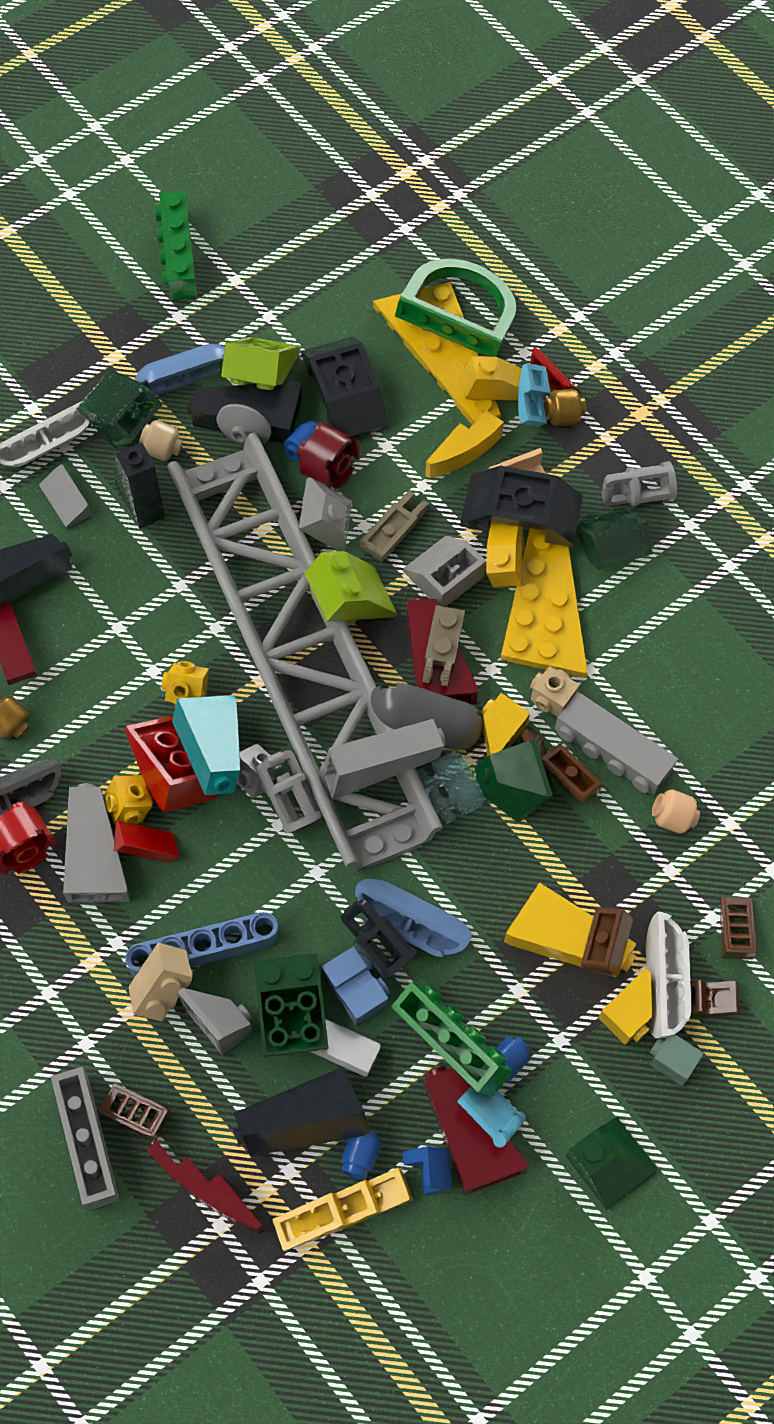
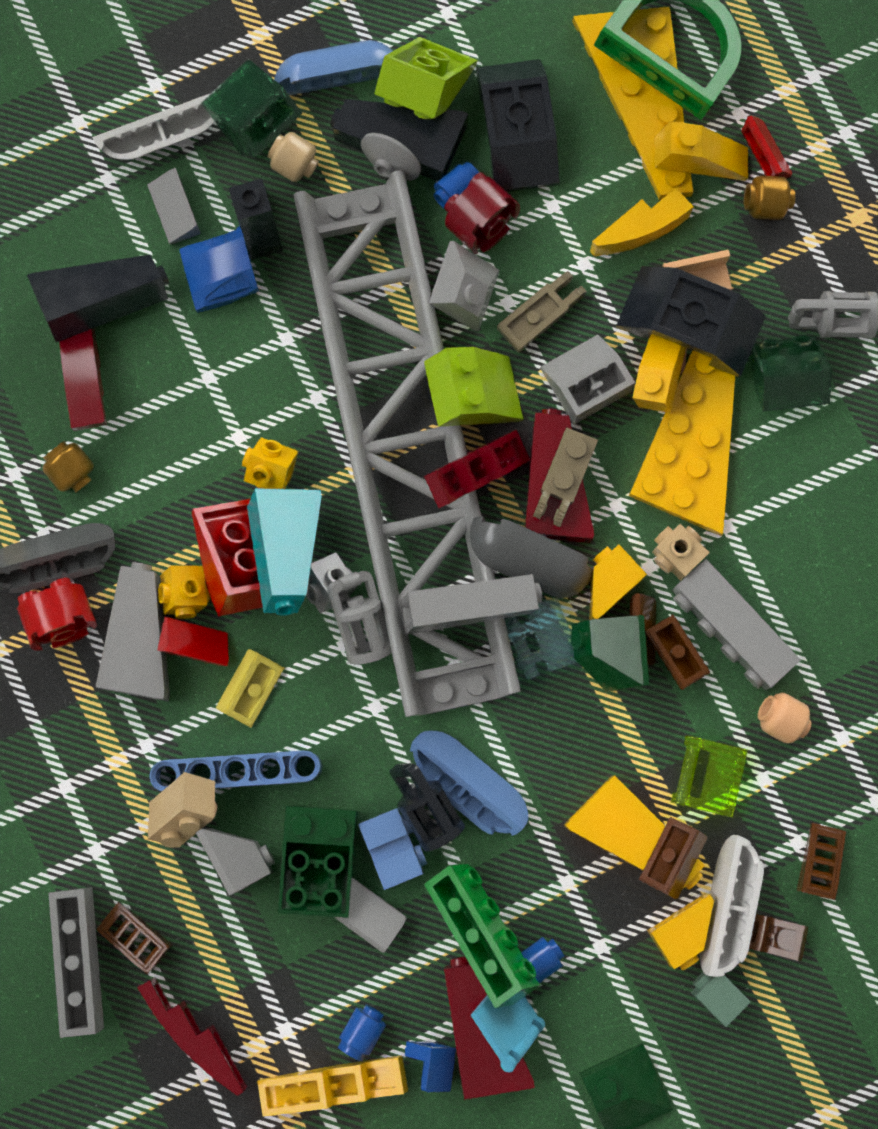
camera: 15 degrees right, 15 degrees up
(114, 539) = (218, 270): none -> blue slope
(201, 875) = (249, 688): none -> light yellow slope
(302, 1116) = (308, 983): black slope -> none
(366, 649) = (477, 468): none -> dark red slope
(532, 387) = (736, 166): medium azure slope -> none
(633, 873) = (720, 779): none -> clear neon green plate

